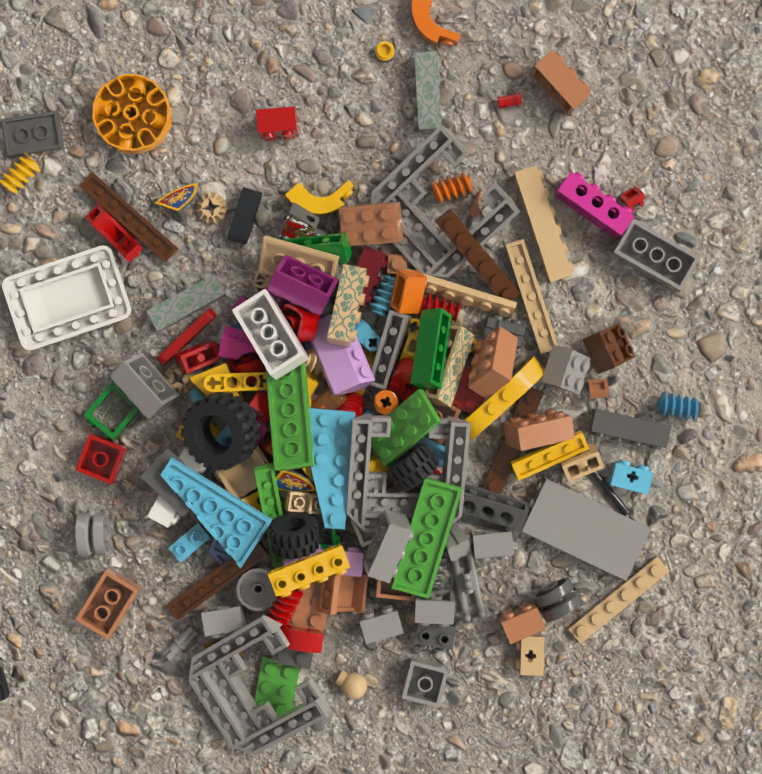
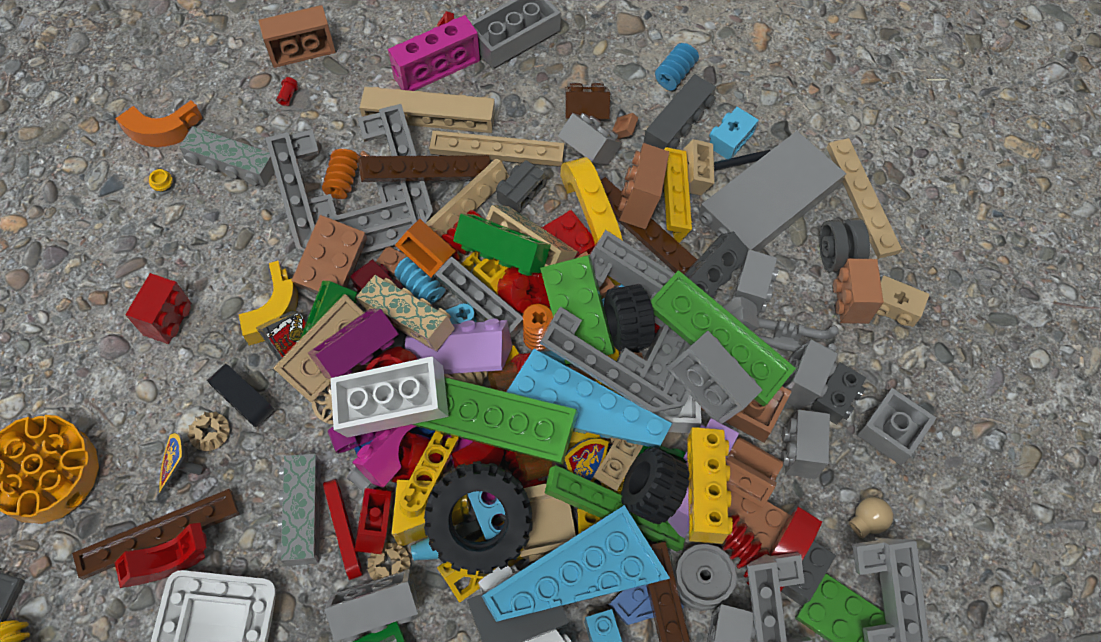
camera: 70 degrees left, 25 degrees down
(493, 362) = (549, 193): nougat brick -> none

